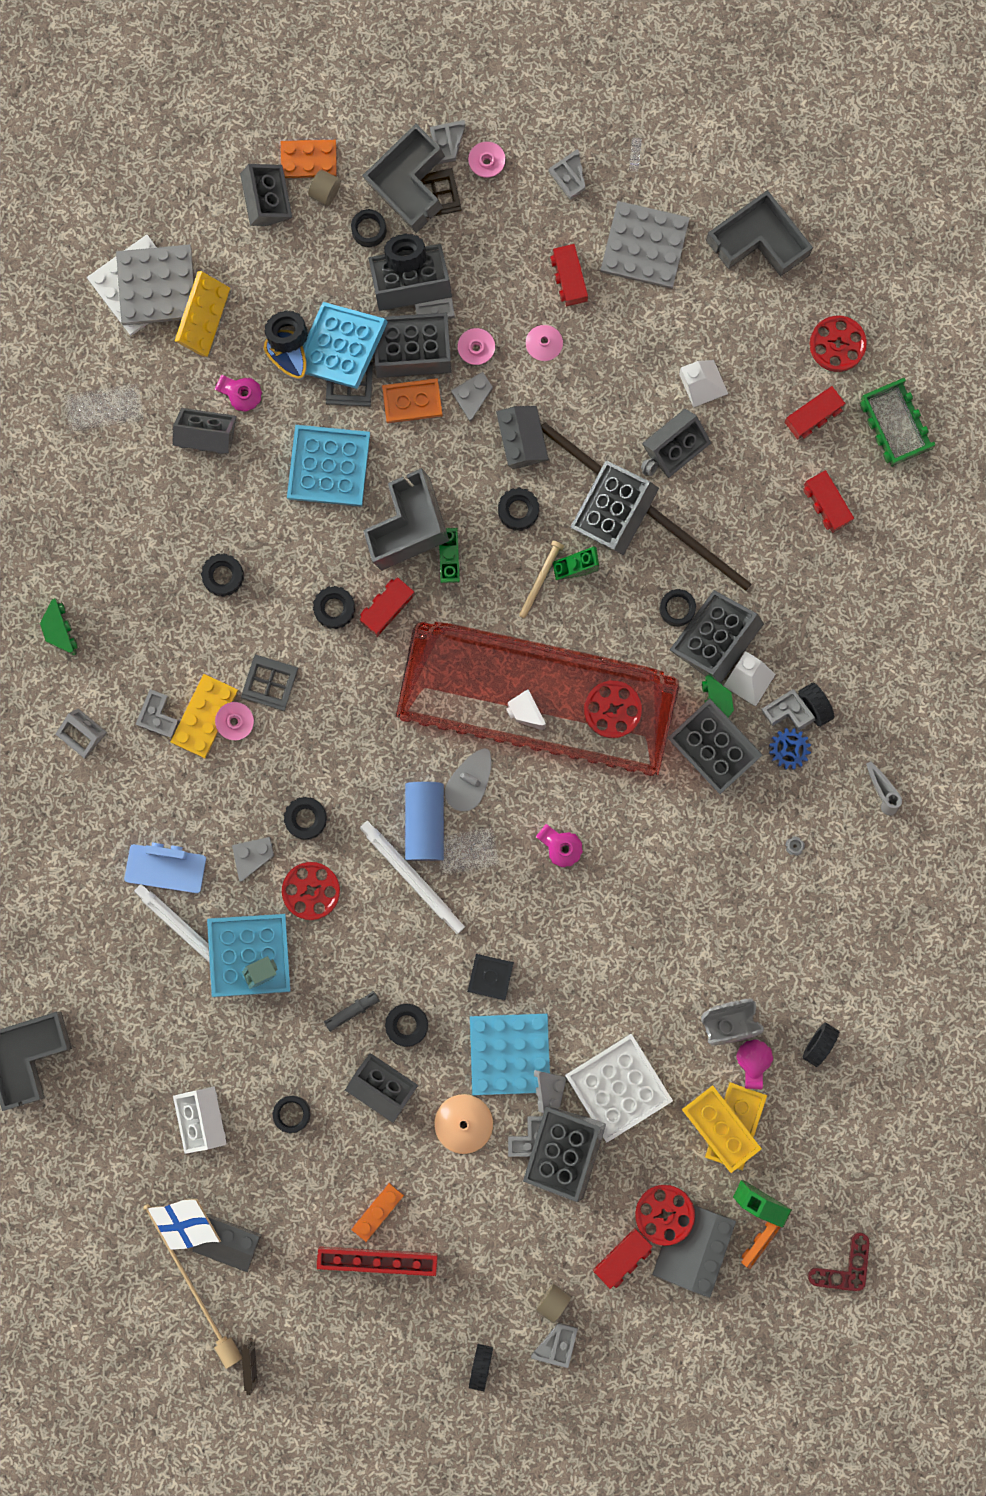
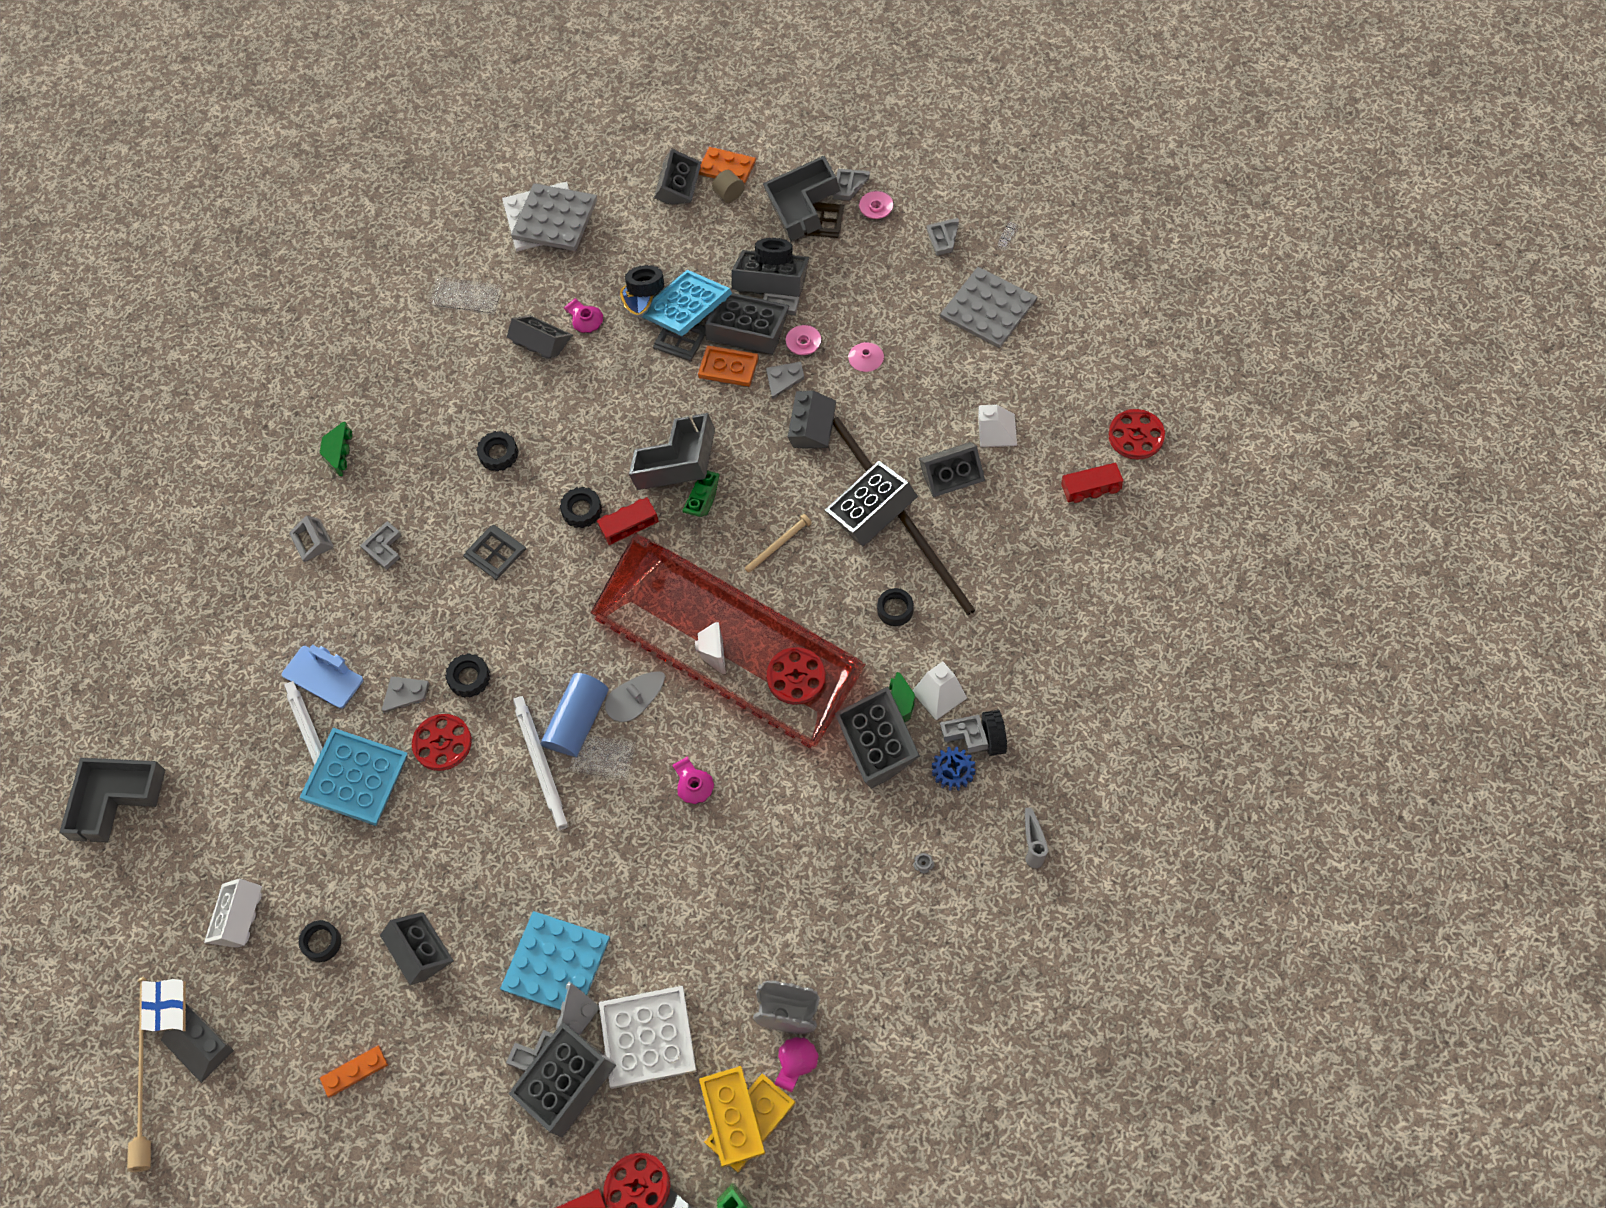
camera: 25 degrees right, 20 degrees down
(197, 727) = (423, 560): yellow plate -> none
(202, 314) = (581, 248): yellow plate -> none
(243, 716) = (444, 563): bright pink dish -> none
(249, 1366) = (141, 1193): dark brown piece -> none
(259, 972) = (349, 784): sand green brick -> none
(328, 465) = (631, 394): medium azure plate -> none
(351, 1011) = (417, 866): dark grey pin -> none
(373, 241) = (752, 216): black tyre -> none
(377, 1261) = (327, 1118): red brick -> none
(421, 1025) = (461, 883): black tyre -> none
(467, 1109) = (486, 1026): light nougat dish -> none
(490, 977) = (570, 880): black plate -> none
(518, 495) = (783, 466): black tyre -> none
(569, 275) = (909, 309): red brick -> none
(577, 564) = (817, 539): green slope -> none
(649, 467) = (918, 479): light grey plate -> none
(717, 636) = (922, 646): dark grey slope -> none
(760, 226) = (1097, 318): dark grey piece -> none
(821, 1044) = (870, 1066): black tyre -> none
(828, 501) = (1076, 561): red brick -> none
(896, 422) = (1168, 514): window -> none

